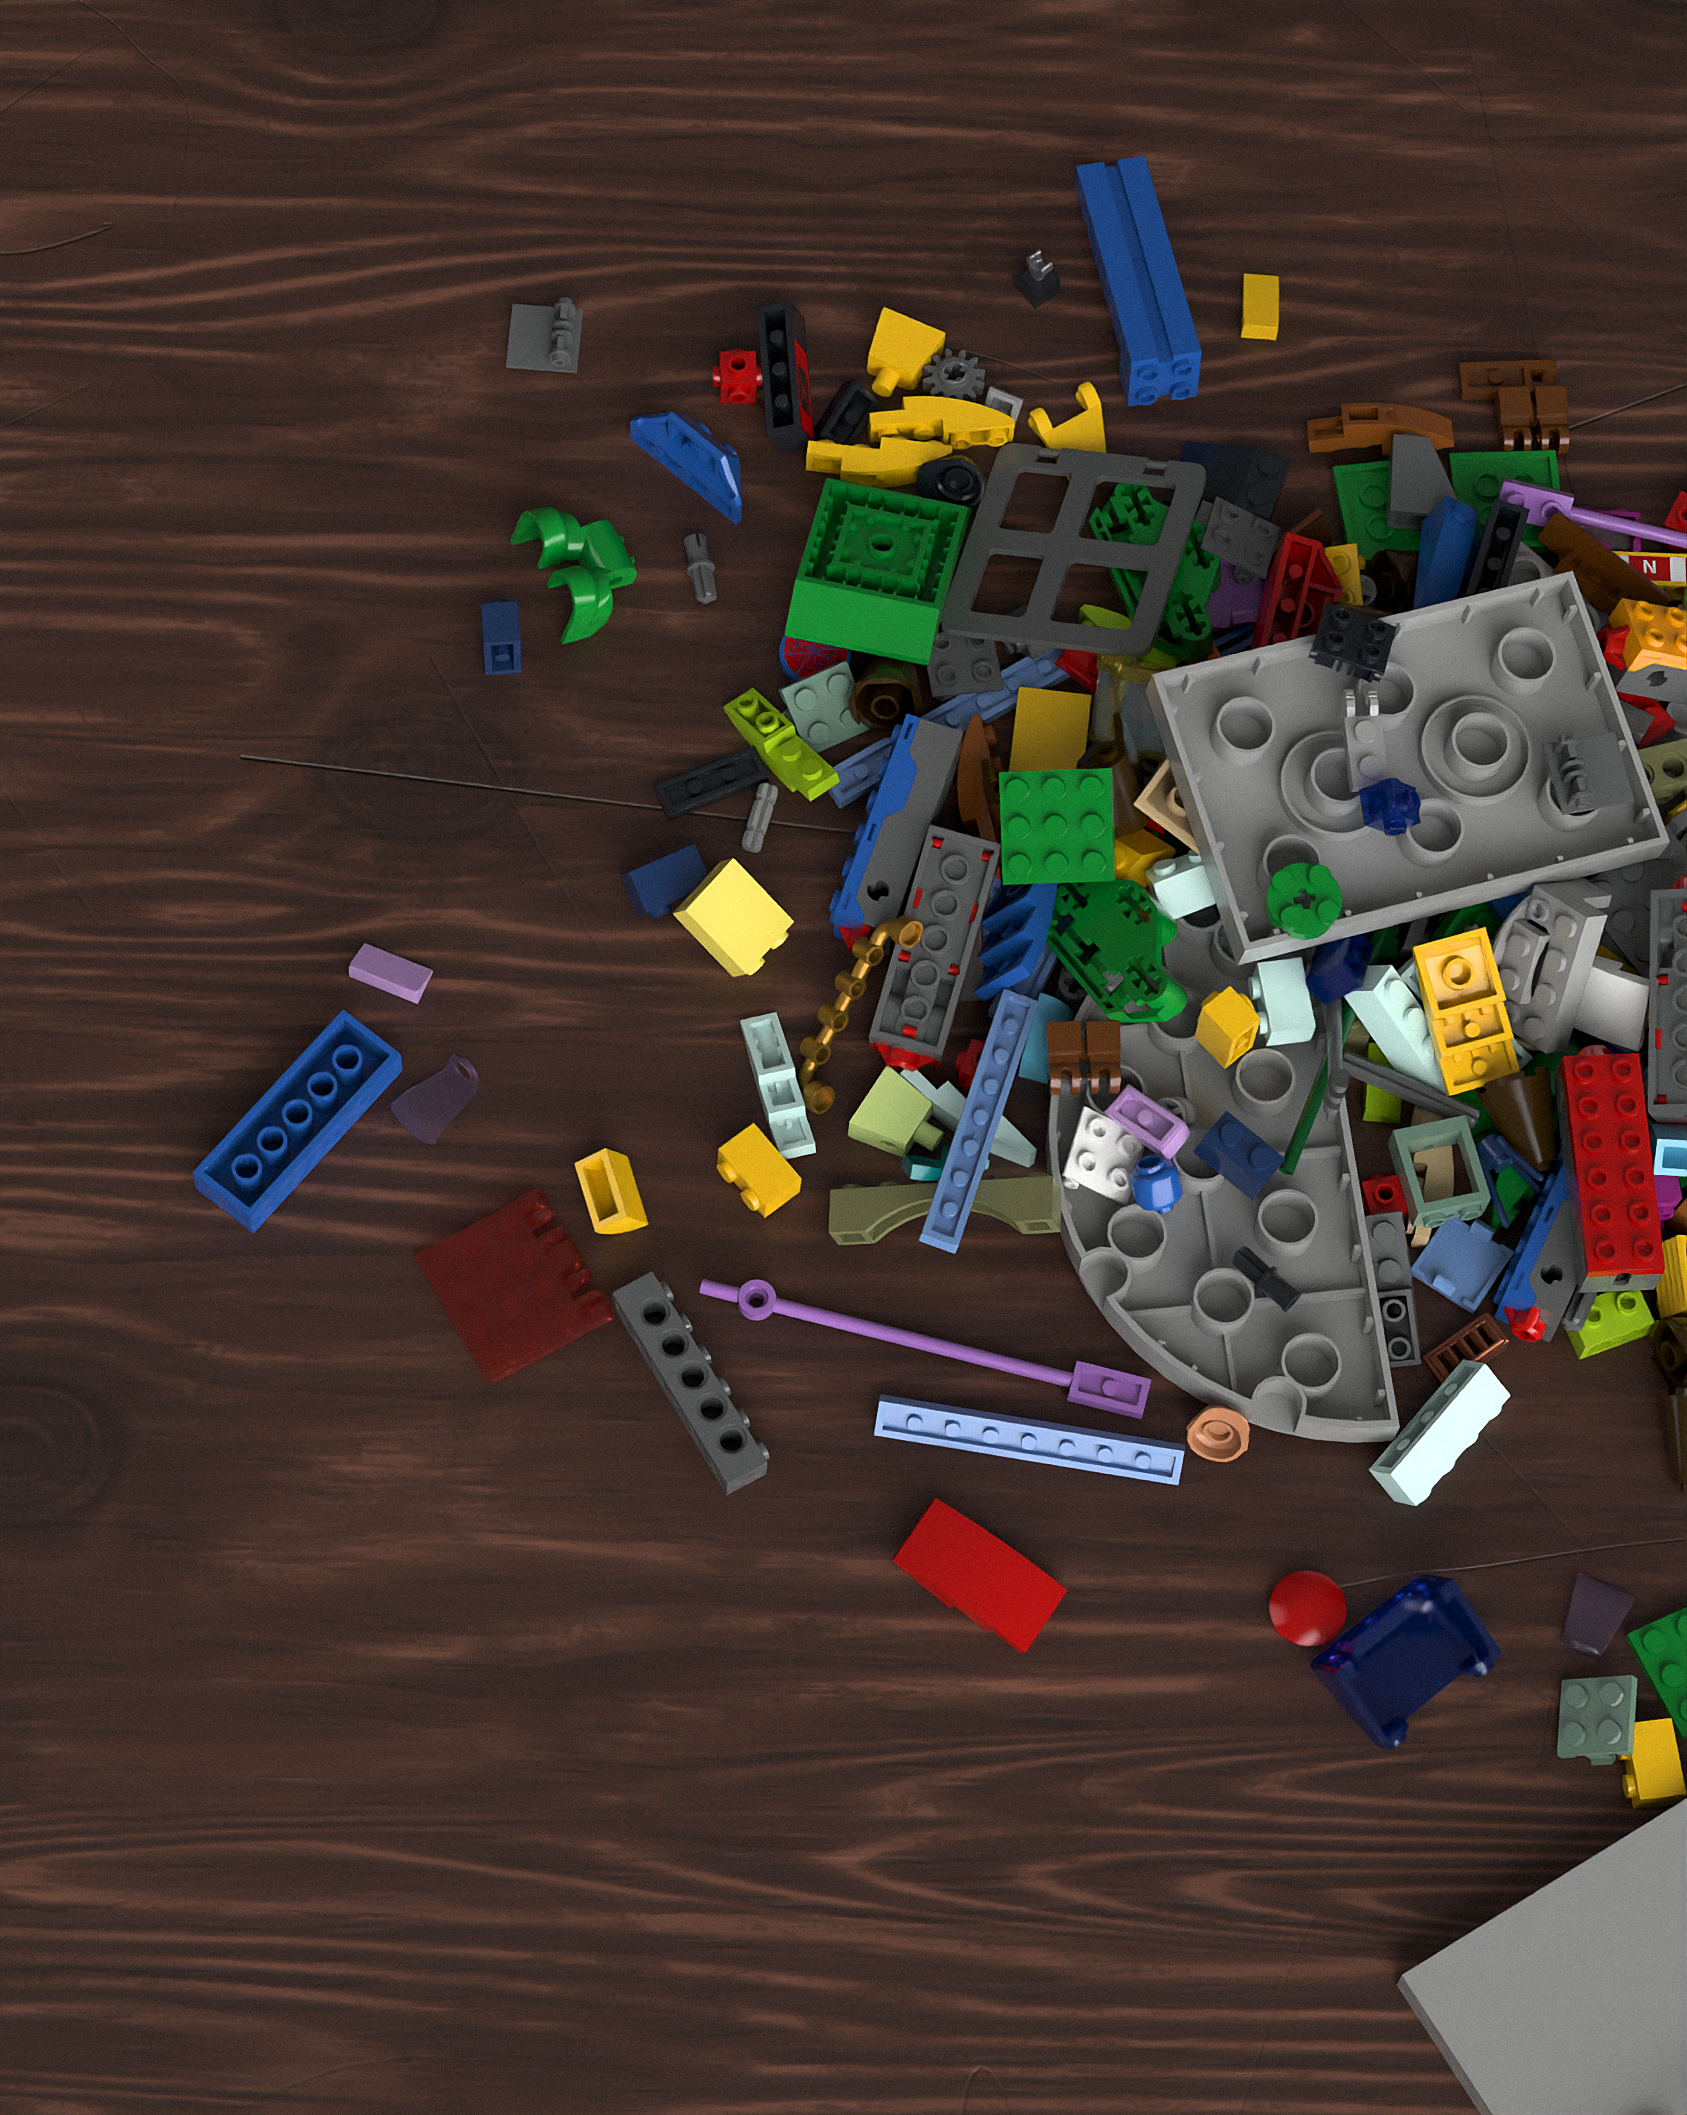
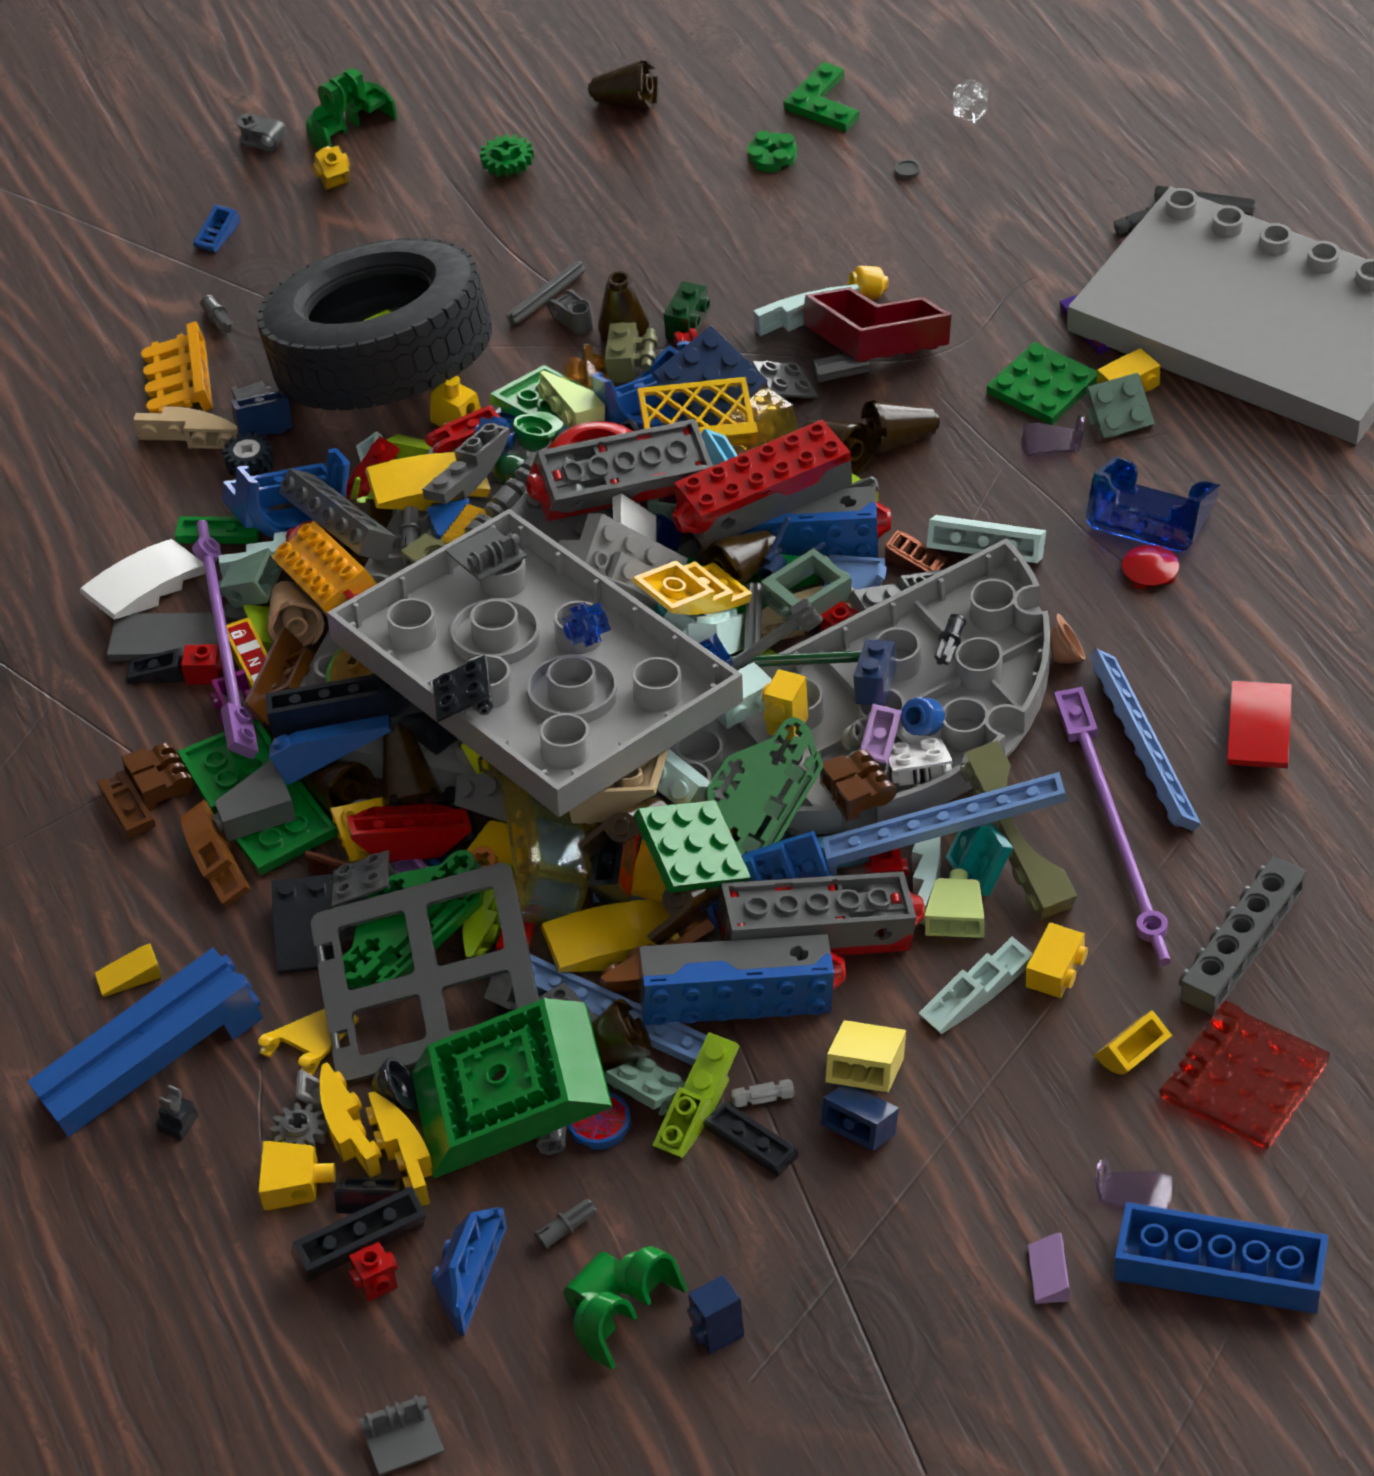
camera: 105 degrees left, 20 degrees down
(834, 1017) = (879, 954): pearl gold bar -> none
(1291, 917) = (670, 655): green plate -> none
(1363, 741) = (537, 664): light grey hinge -> none

